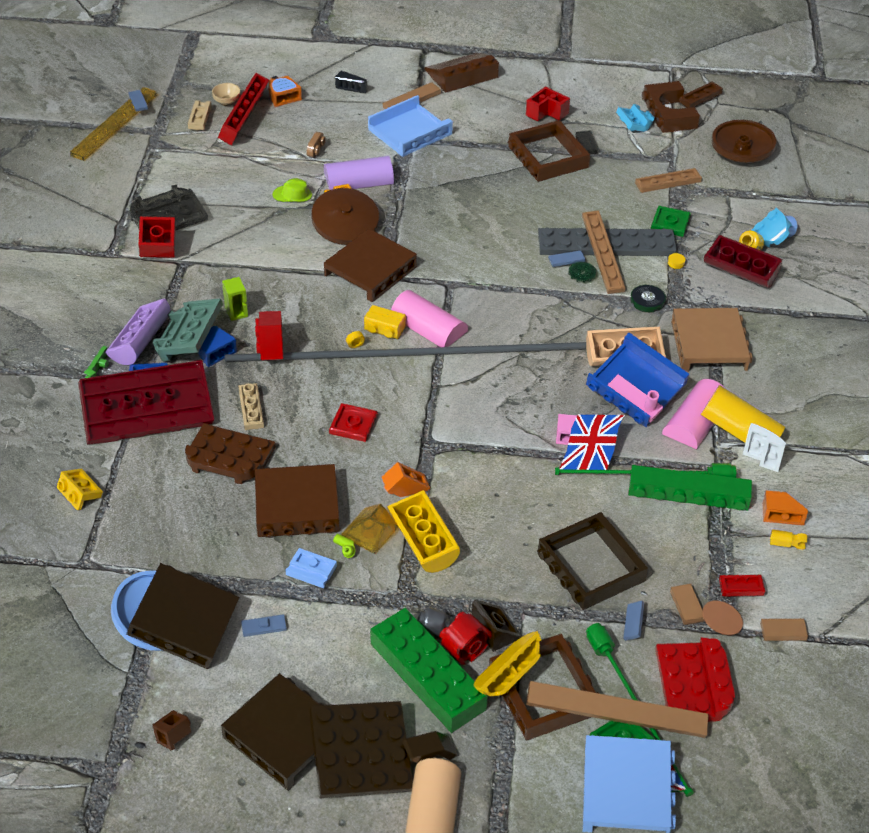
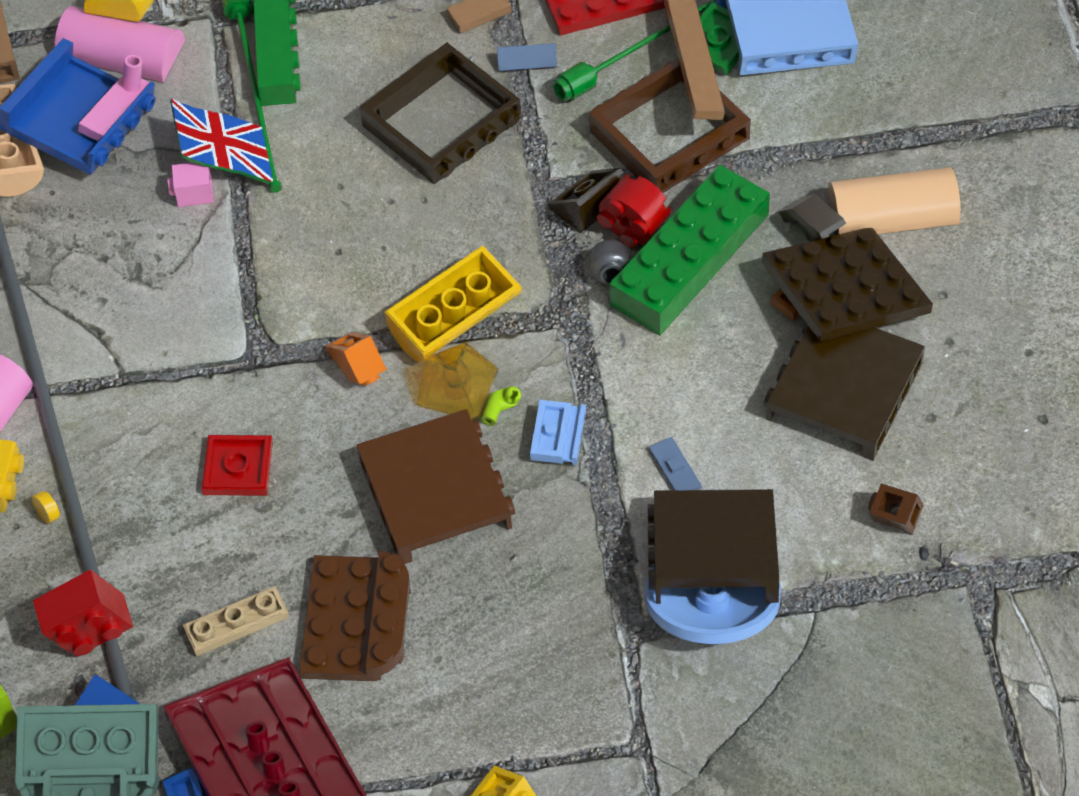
camera: 100 degrees left, 10 degrees up
(509, 666) = (671, 146): yellow brick -> none

